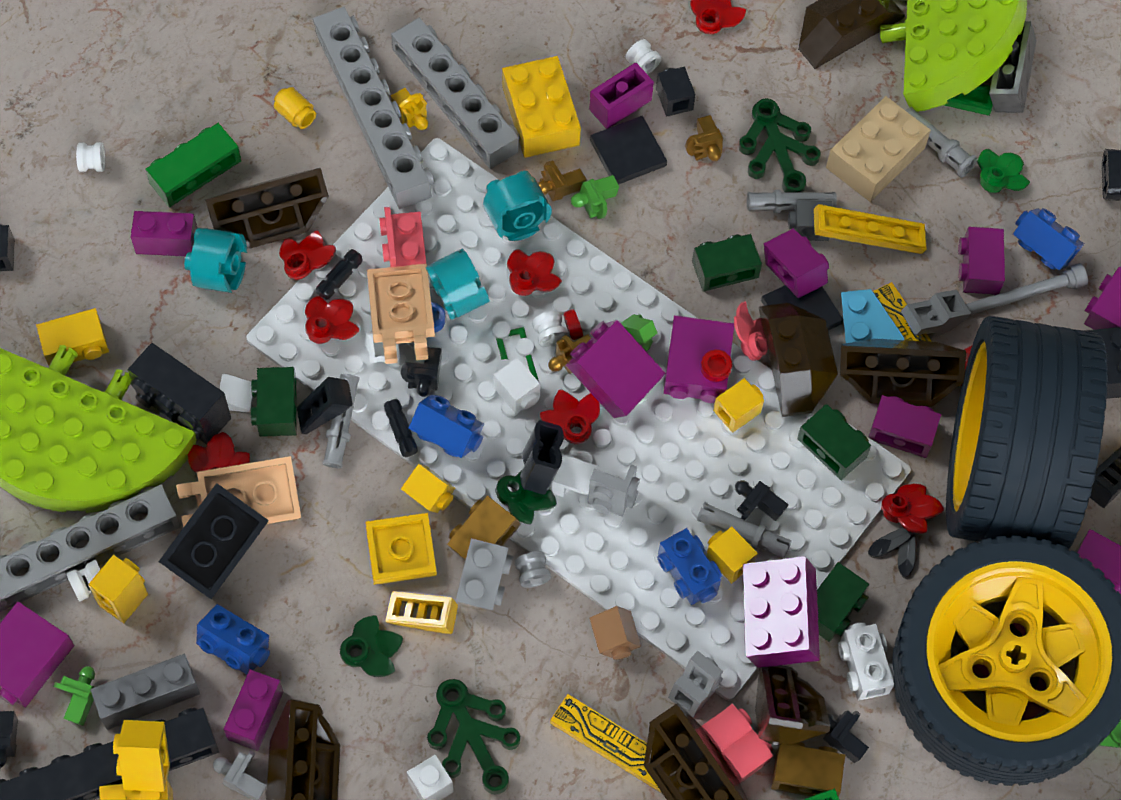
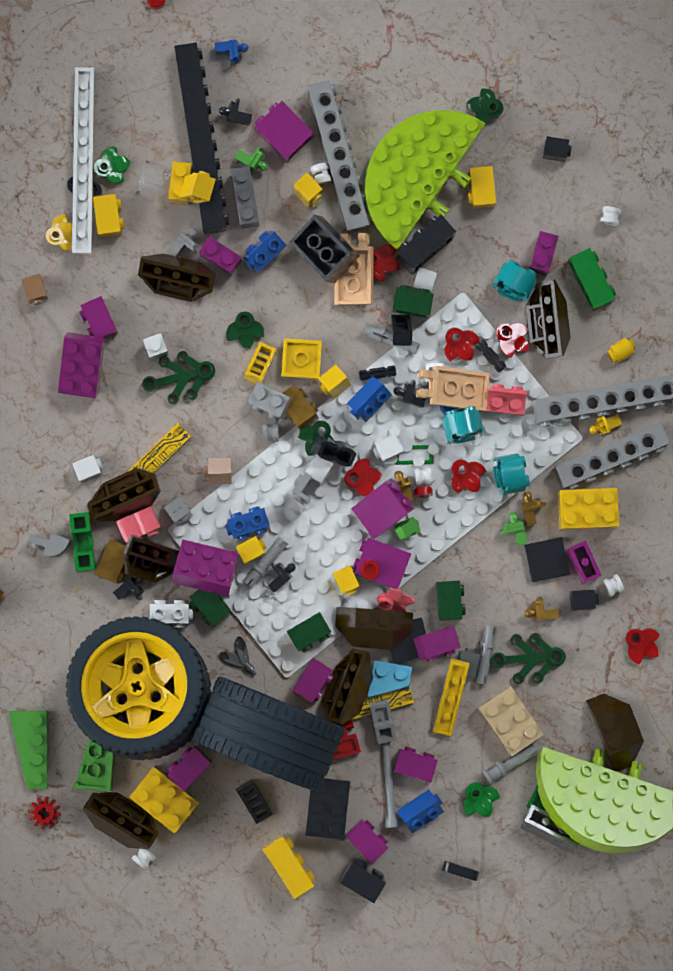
camera: 100 degrees right, 20 degrees up
(911, 507) = (259, 672): red plate -> none

